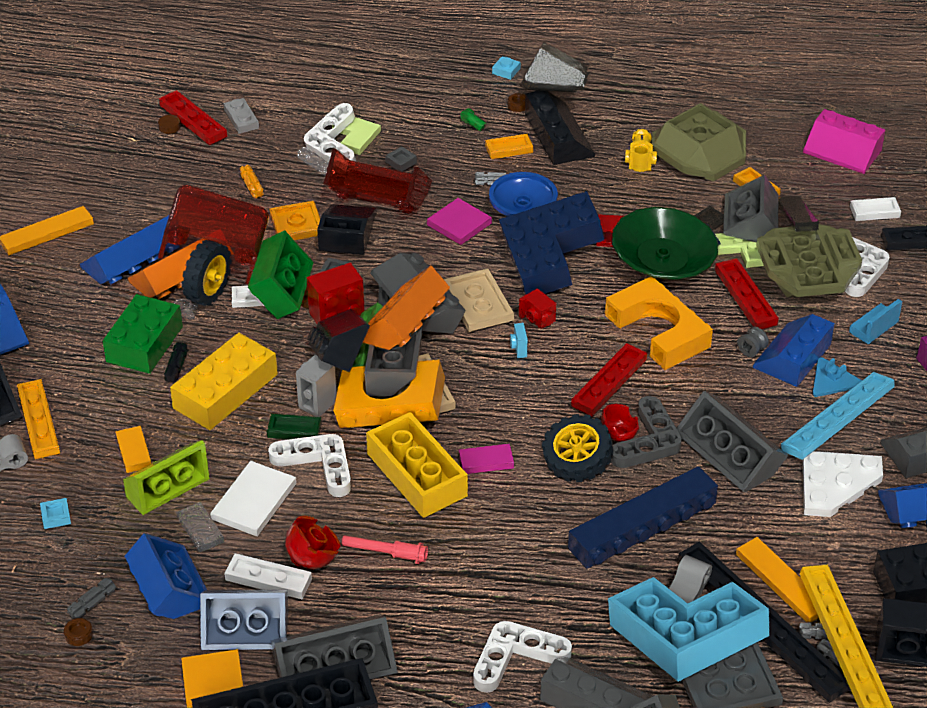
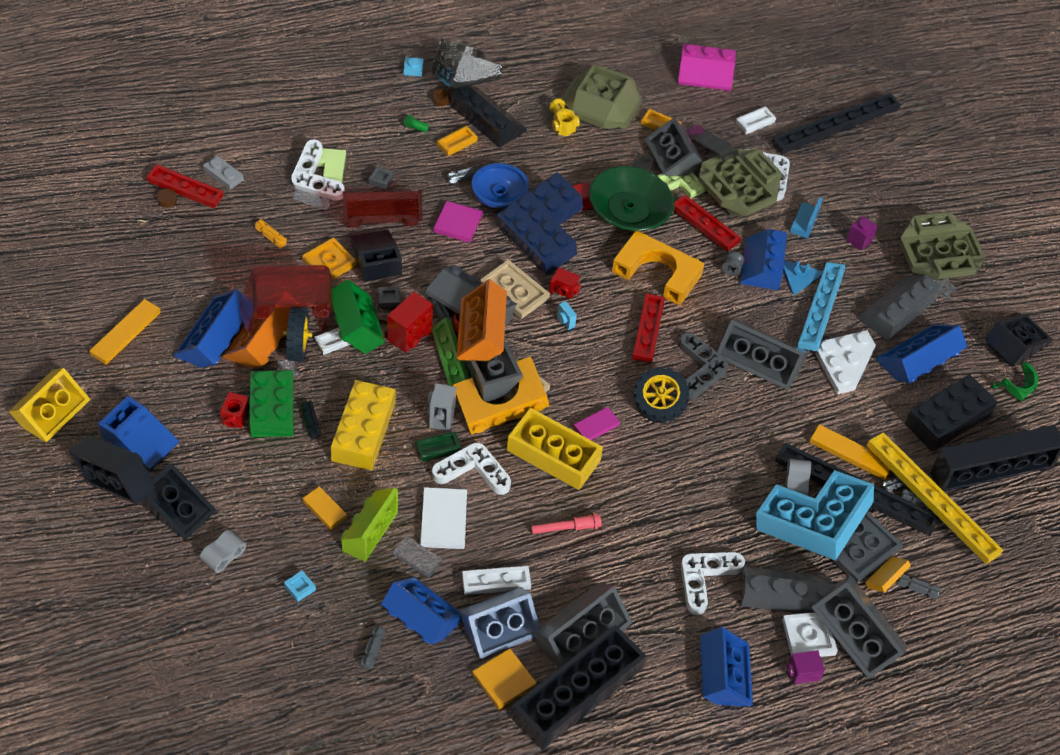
camera: 30 degrees left, 10 degrees up
(38, 419) = (230, 507): light orange tile -> none
(78, 632) = (378, 679): reddish brown tile -> none
(97, 327) = (235, 410): none -> red brick
(310, 544) = (517, 543): red cylinder -> none
(339, 338) = (446, 362): black slope -> none
(619, 422) = (678, 362): red hair -> none
(642, 517) = (735, 436): dark blue brick -> none

